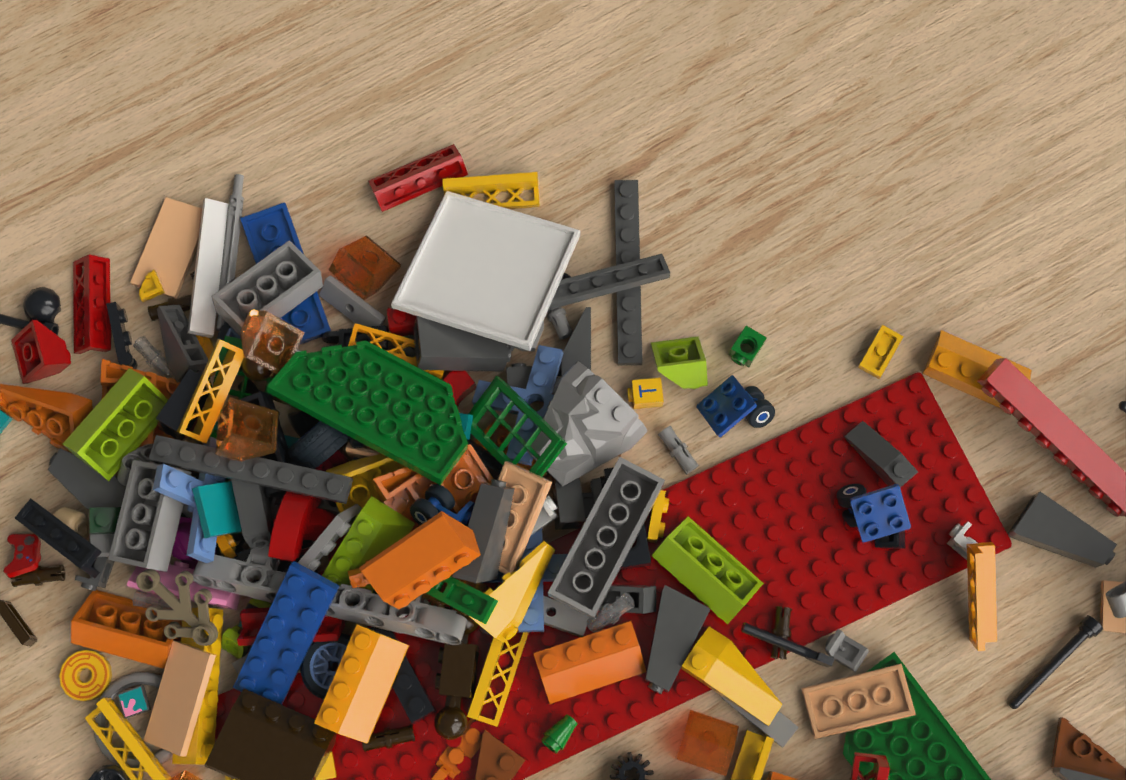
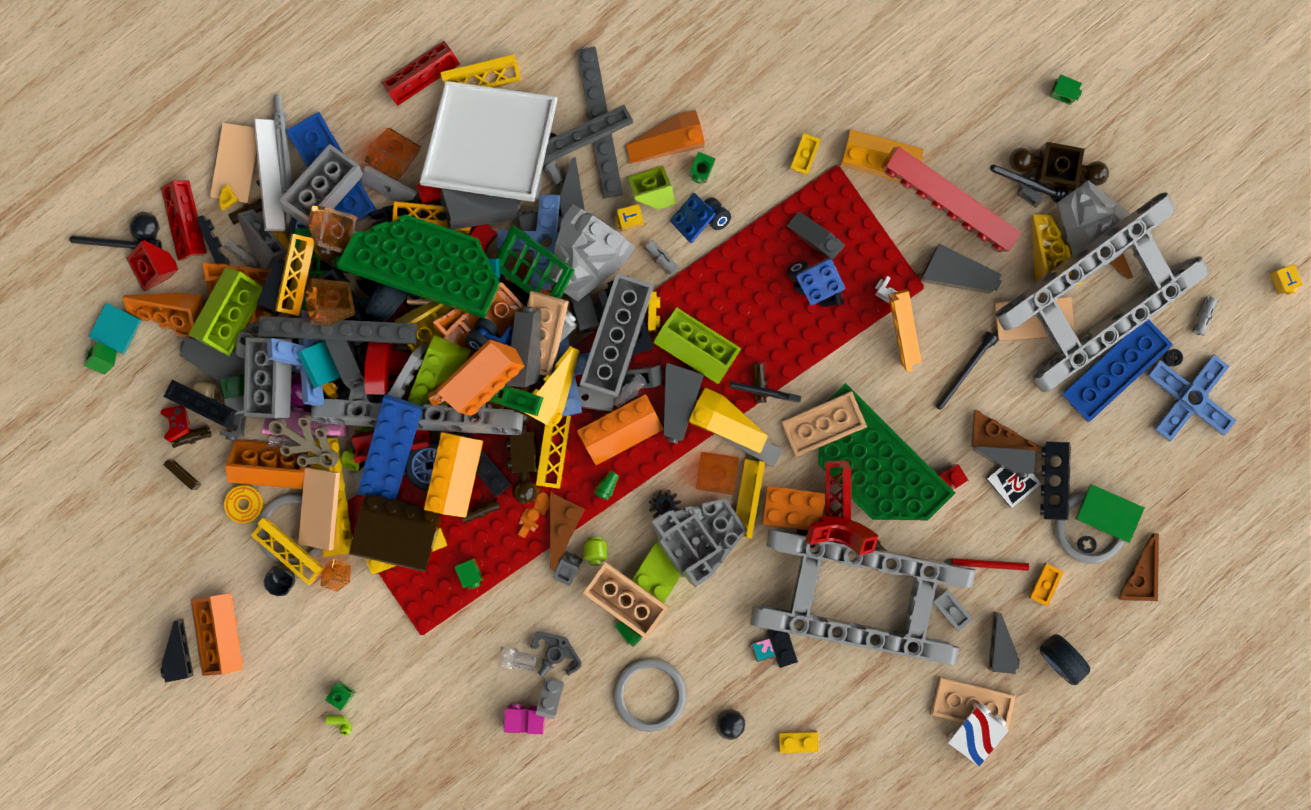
camera: 15 degrees left, 10 degrees up
(134, 701) = (285, 517): tile -> none
(717, 303) = (671, 137): none -> orange wedge
(846, 650) = (809, 388): light grey bracket -> none

